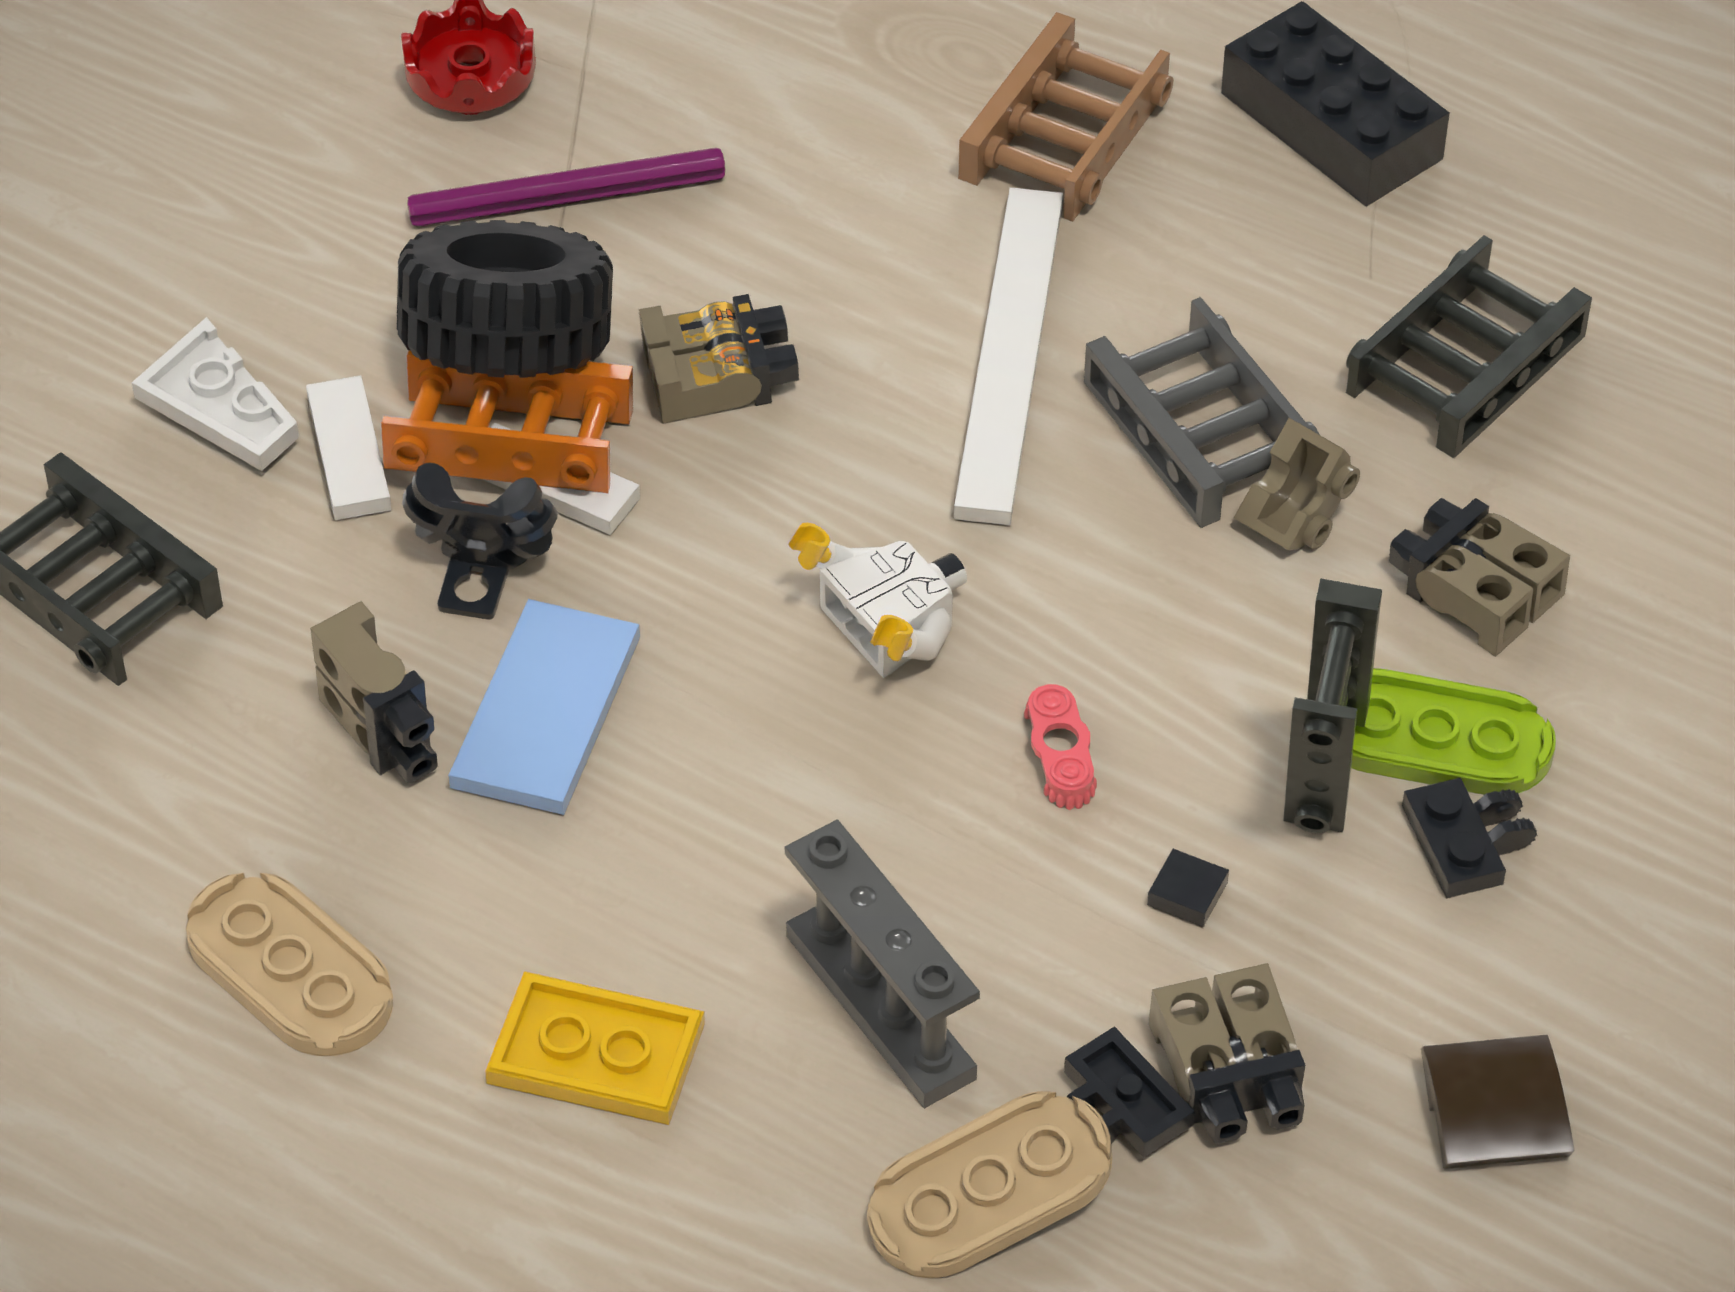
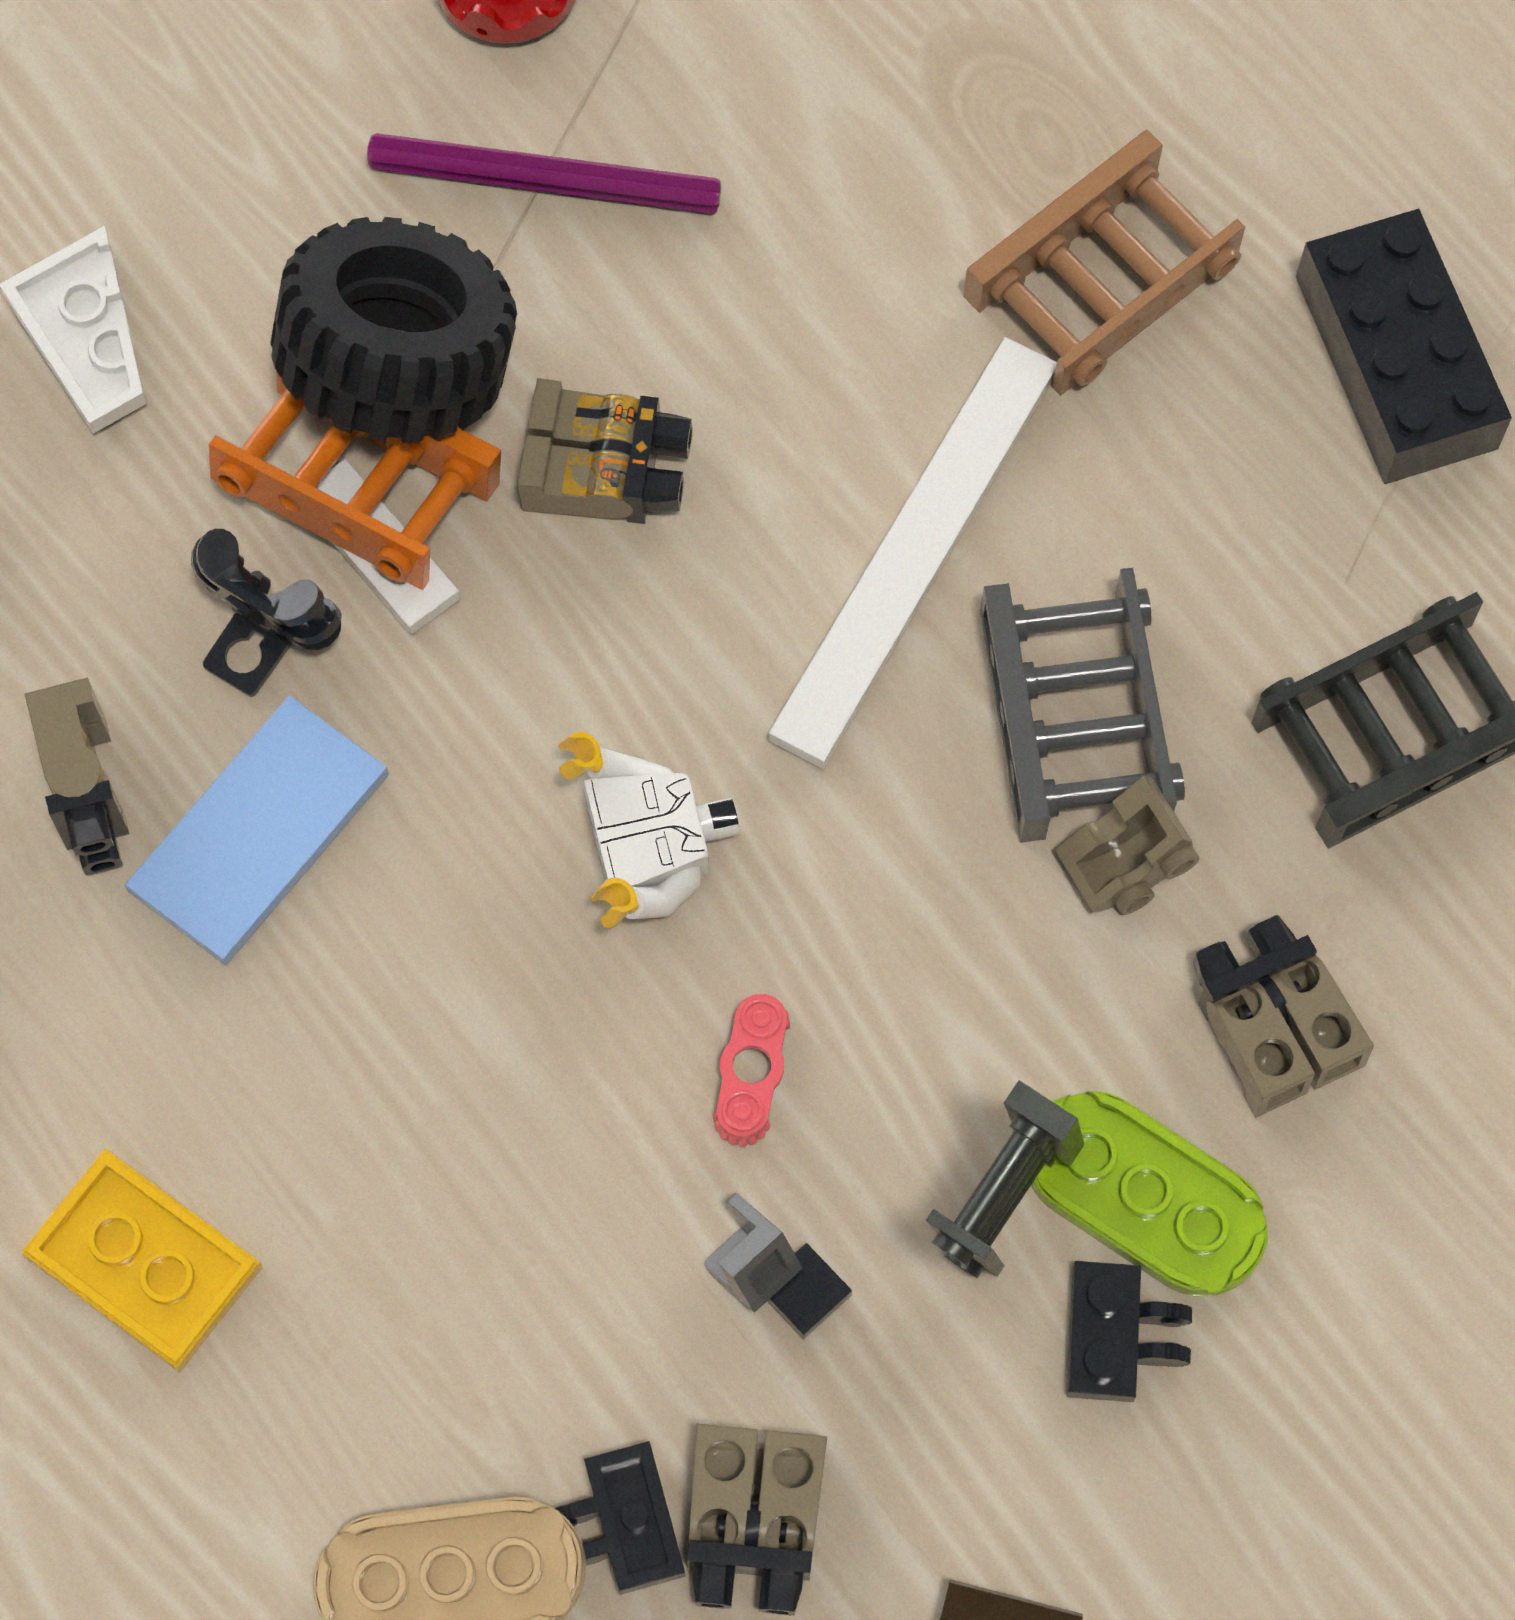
camera: 20 degrees right, 20 degrees up
(348, 447) = (190, 417): white tile -> none
(881, 963) = (435, 1293): dark grey fence -> none
(1138, 863) = (755, 1259): none -> dark grey panel

